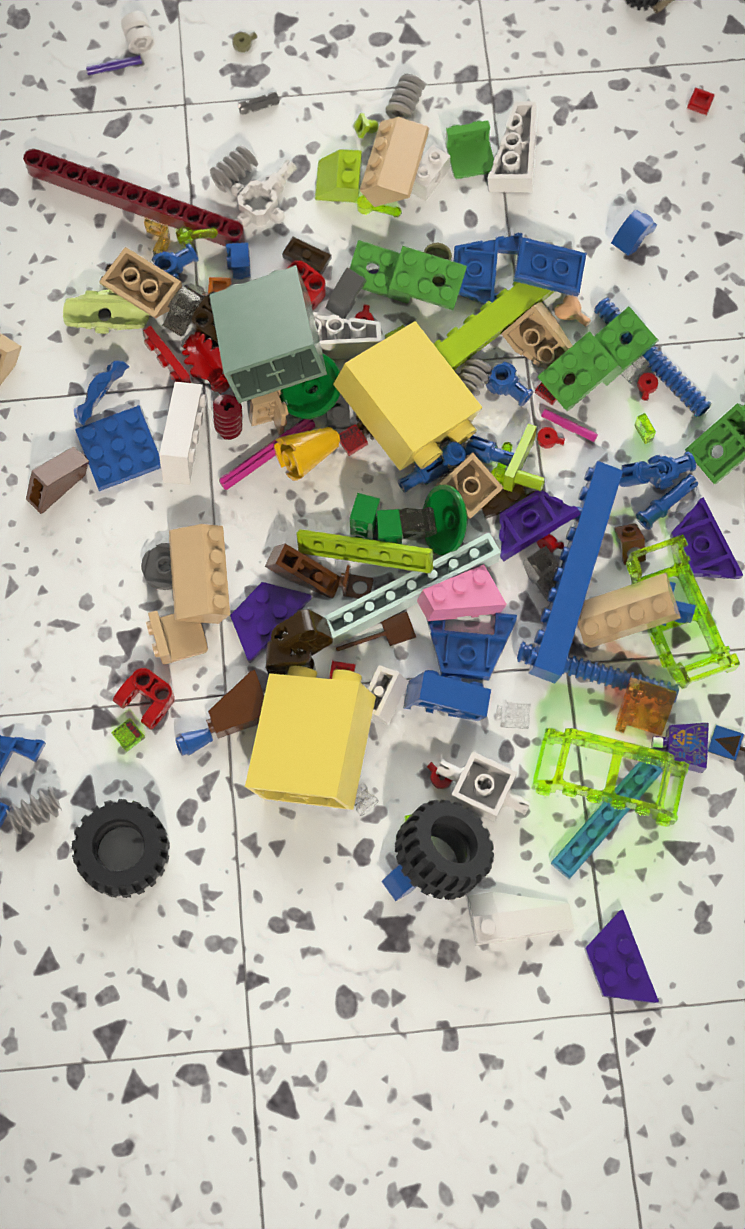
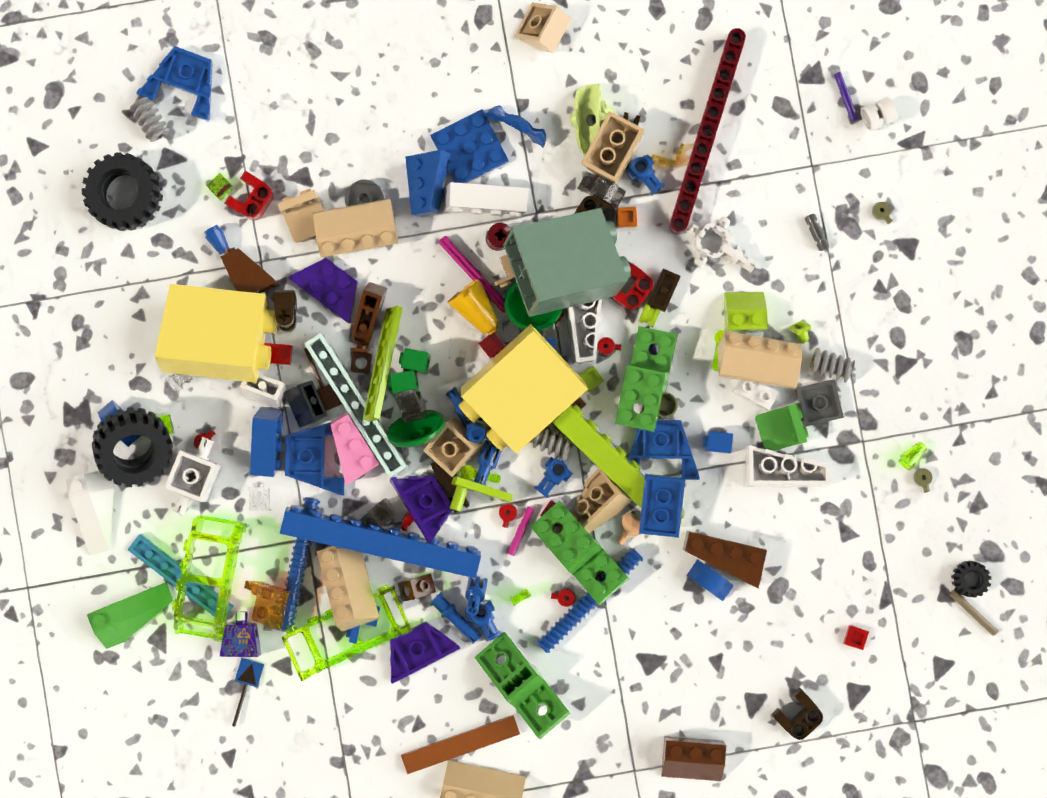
camera: 85 degrees right, 15 degrees up
(55, 478) = (434, 99): reddish brown slope -> none
(152, 491) = (425, 181): none -> blue wedge
(165, 356) = (554, 178): red plate -> none
(186, 235) = (672, 182): clear neon green piece -> none
(205, 361) = (556, 206): red plant -> none
(232, 166) = (745, 216): light grey piece -> none
(238, 260) = (652, 231): blue brick -> none
(303, 627) = (300, 318): dark brown piece -> none
(333, 271) = (649, 315): none -> lime wheel
(344, 293) = (627, 327): dark grey slope -> none
(405, 647) = (305, 404): none -> black brick
(444, 111) = (819, 403): none -> dark grey plate
(481, 213) = (718, 442): none -> blue brick
(511, 33) = (912, 456): none -> clear neon green cone
(533, 25) = (923, 482): none -> olive piece
(611, 207) = (734, 558): none -> reddish brown wedge
(619, 963) = (64, 591): dark purple wing -> none
(652, 885) = (124, 618): none -> bright green wedge

